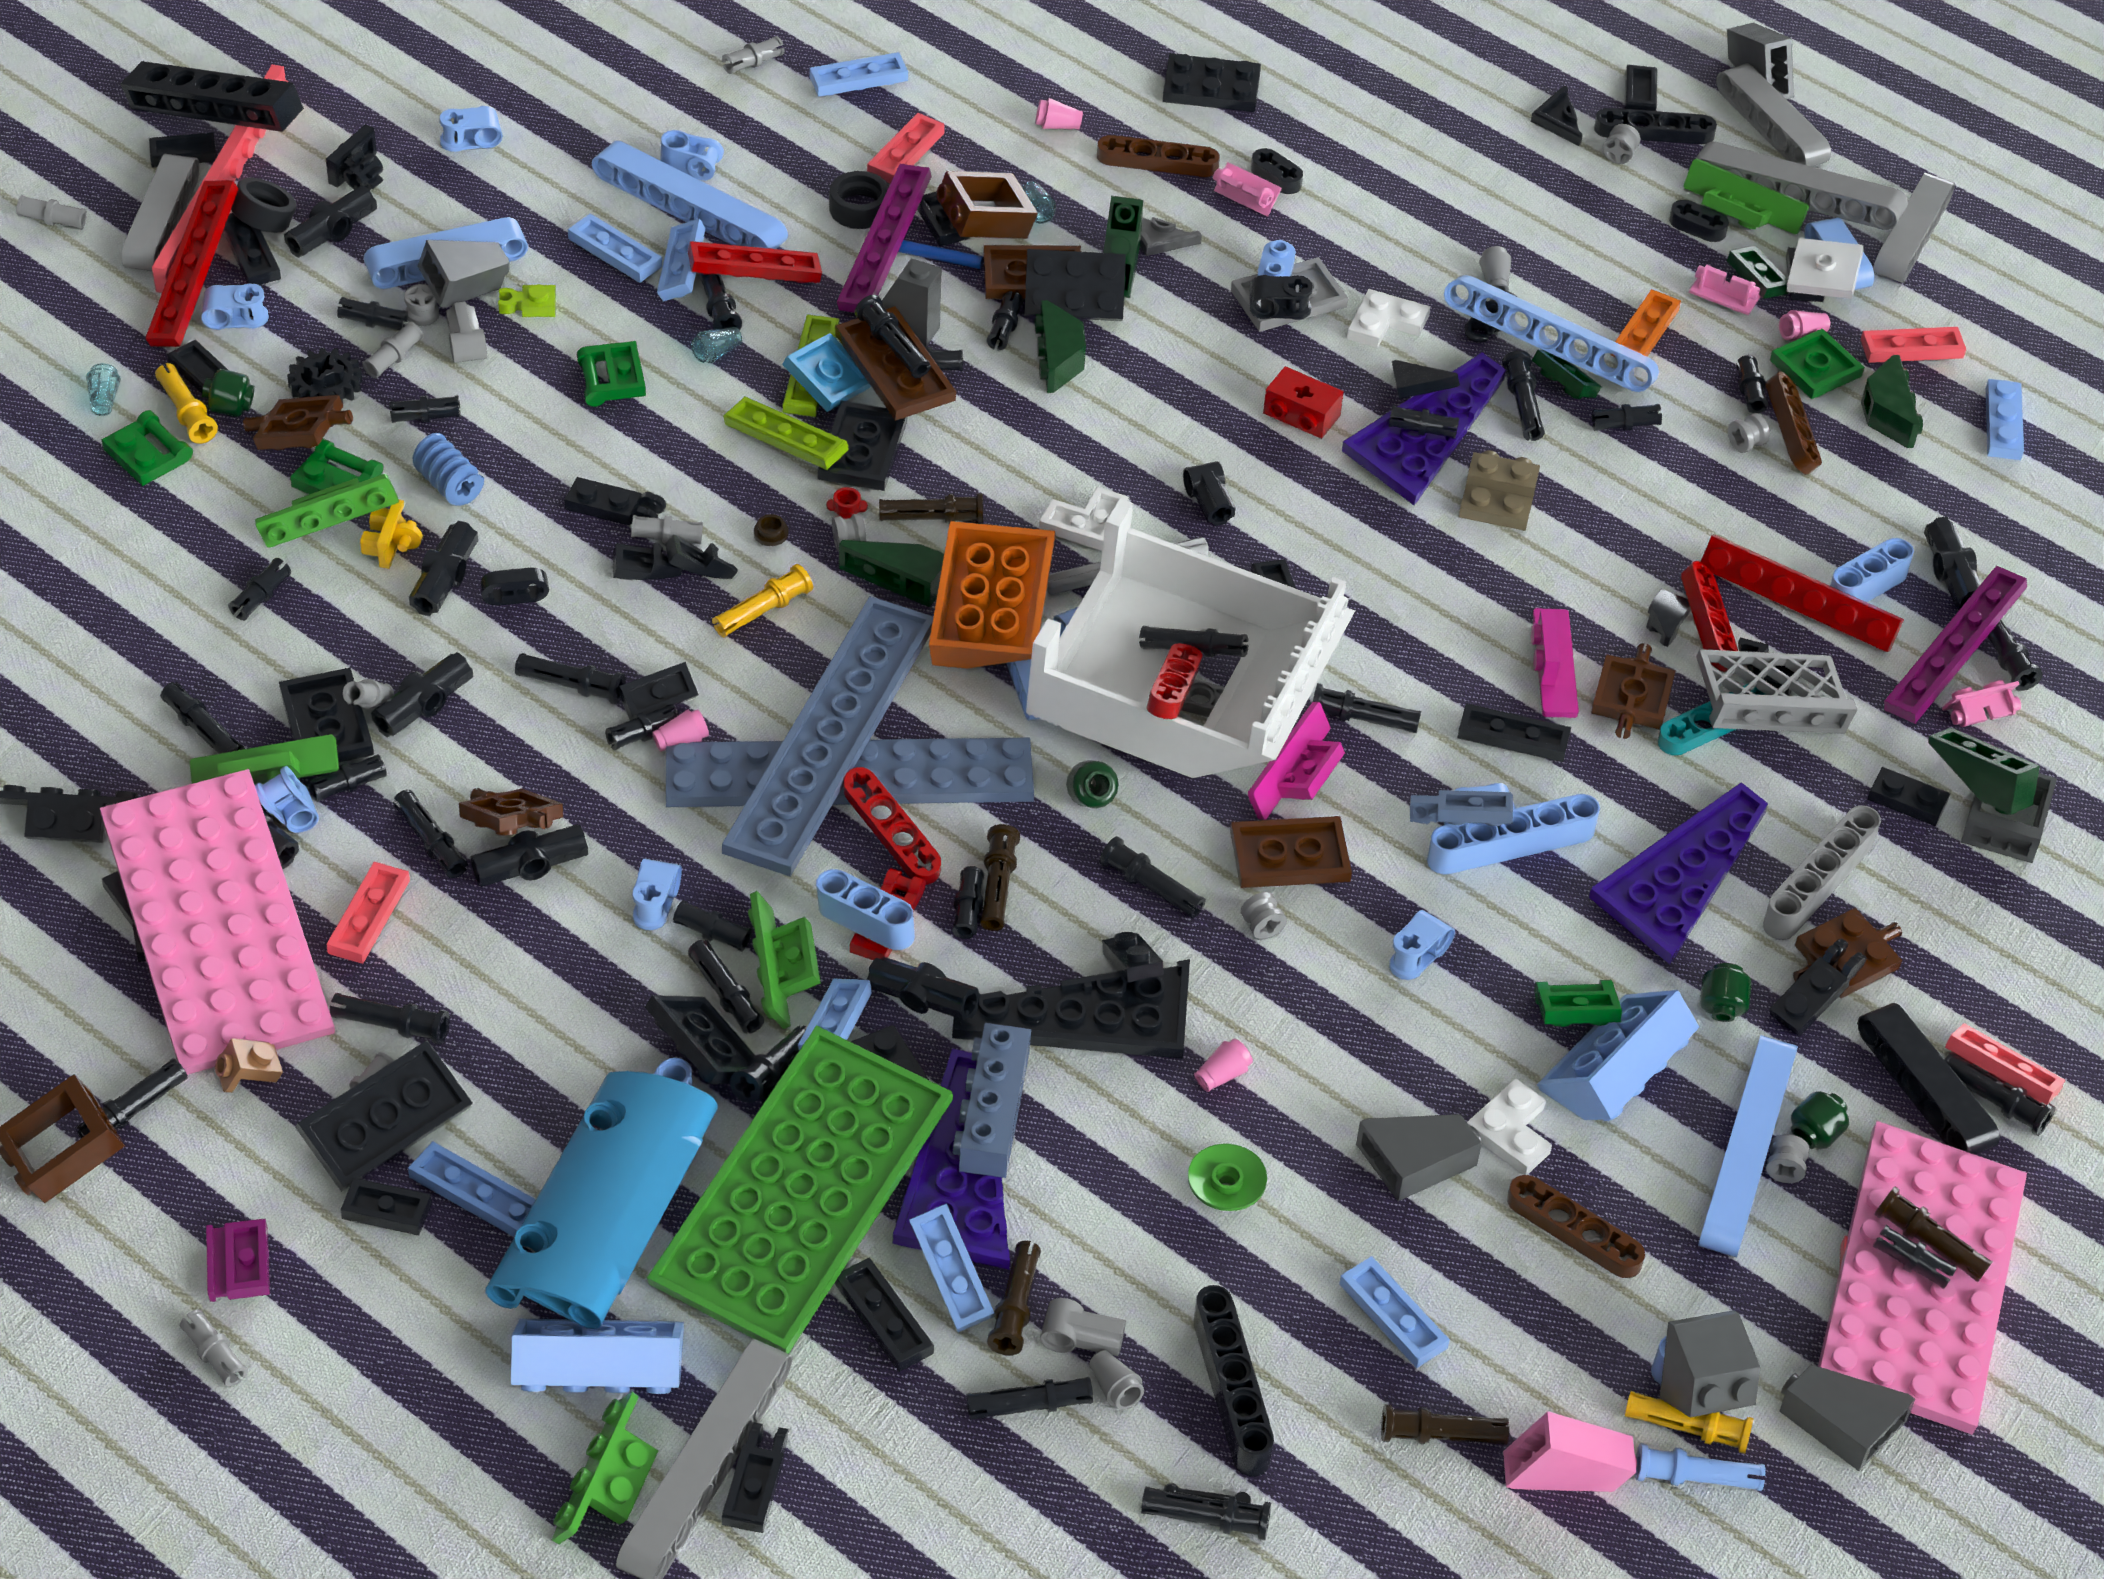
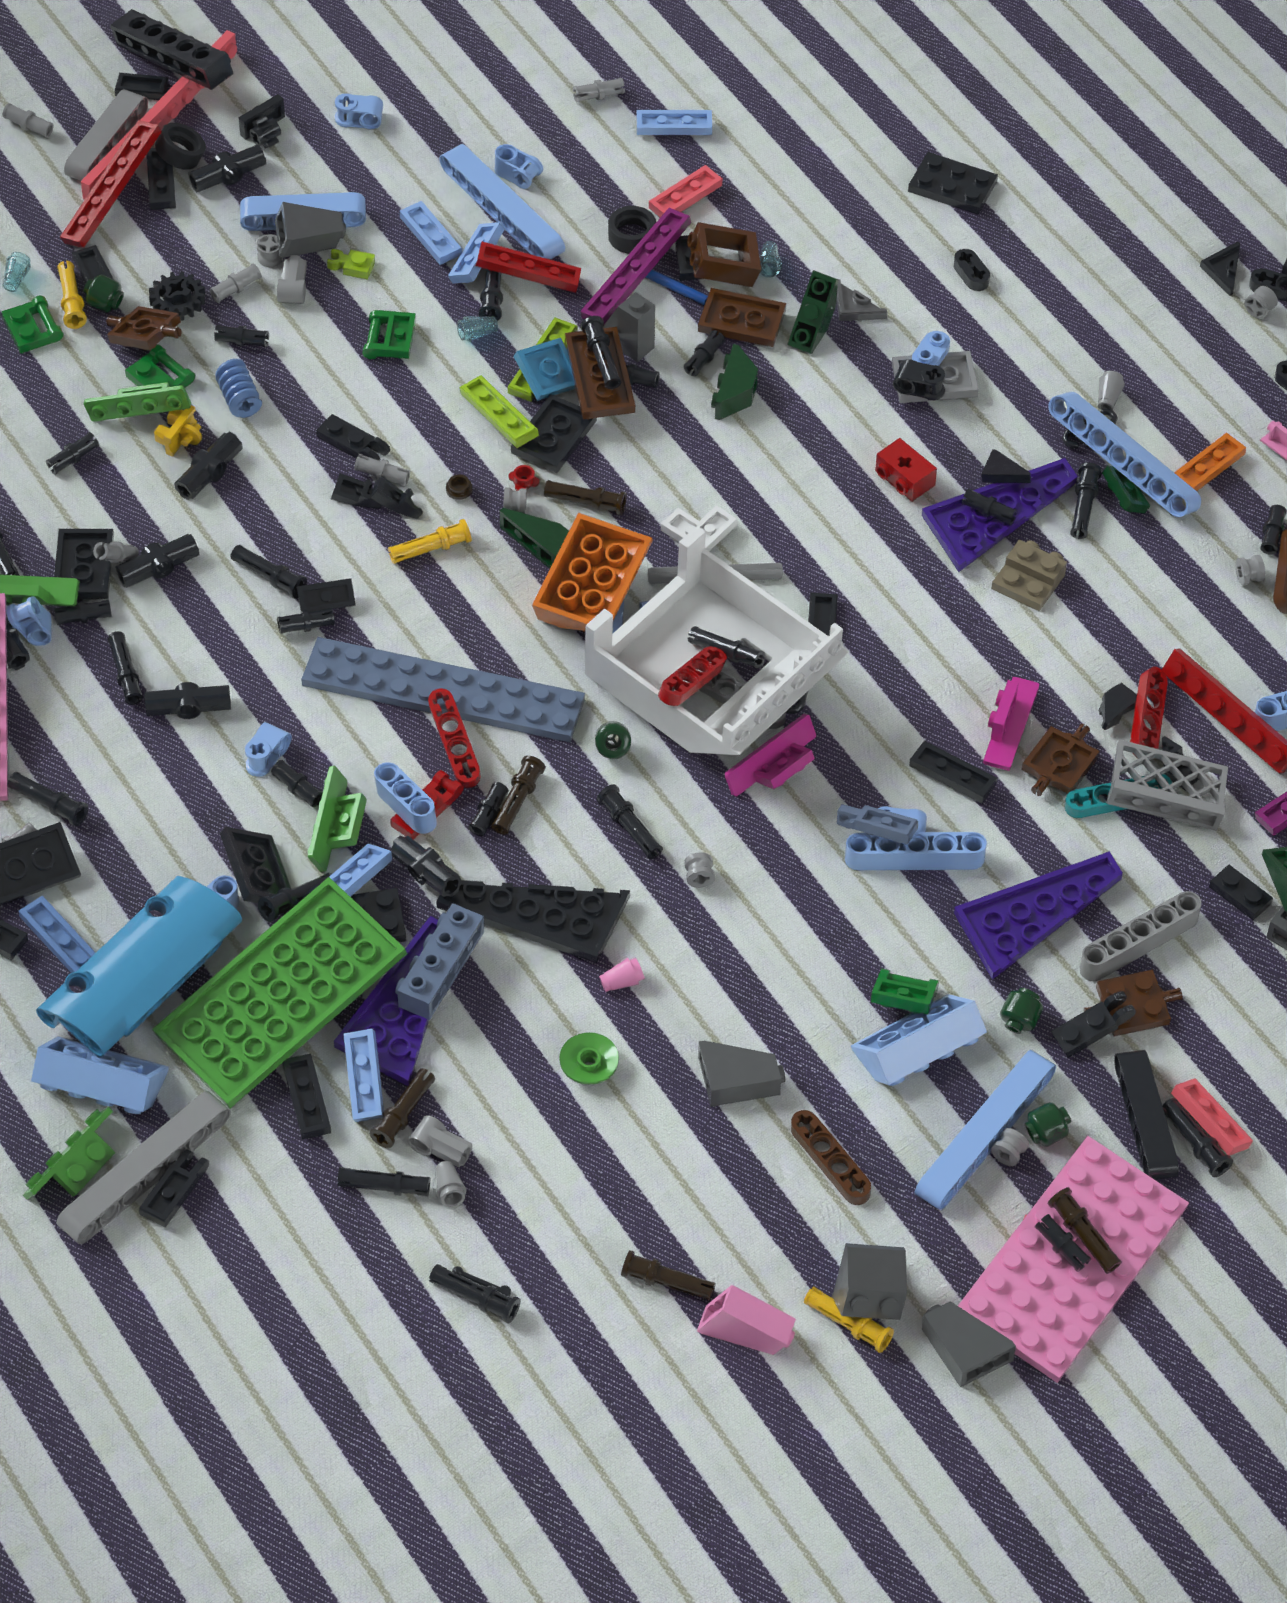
camera: 20 degrees right, 5 degrees up
(232, 307) = (128, 224): light blue piece -> none
(368, 912) = (60, 717): coral plate -> none
(372, 314) = (230, 250): black pin -> none
(510, 810) = (182, 664): reddish brown plate -> none
(514, 586) = (254, 491): black beam -> none
(682, 729) = (333, 629): bright pink cone -> none
(733, 997) = (291, 839): black pin -> none
(828, 737) = (432, 658): sand blue plate -> none
(1057, 115) = (815, 188): bright pink cone -> none
(1078, 282) = (767, 335): black plate -> none
(1113, 149) = (880, 241): reddish brown beam -> none
(1132, 956) = (588, 878): black plate -> none
(1208, 486) = (802, 525): black piece -> none
(1233, 1396) = (530, 1217): black beam -> none
(1246, 188) = (939, 280): bright pink hinge -> none
(1290, 852) = (741, 825): reddish brown plate -> none
(1348, 706) = (835, 722): black pin -> none
(1386, 311) = (1004, 406): white plate -> none
(1394, 1312) = (668, 1186): light blue plate -> none
(1419, 945) = (806, 919): light blue piece -> none
(1505, 1130) = (810, 1071): white plate -> none
(1626, 417) = (1158, 535): black pin -> none
(1678, 1467) = (825, 1349): light blue pin -> none

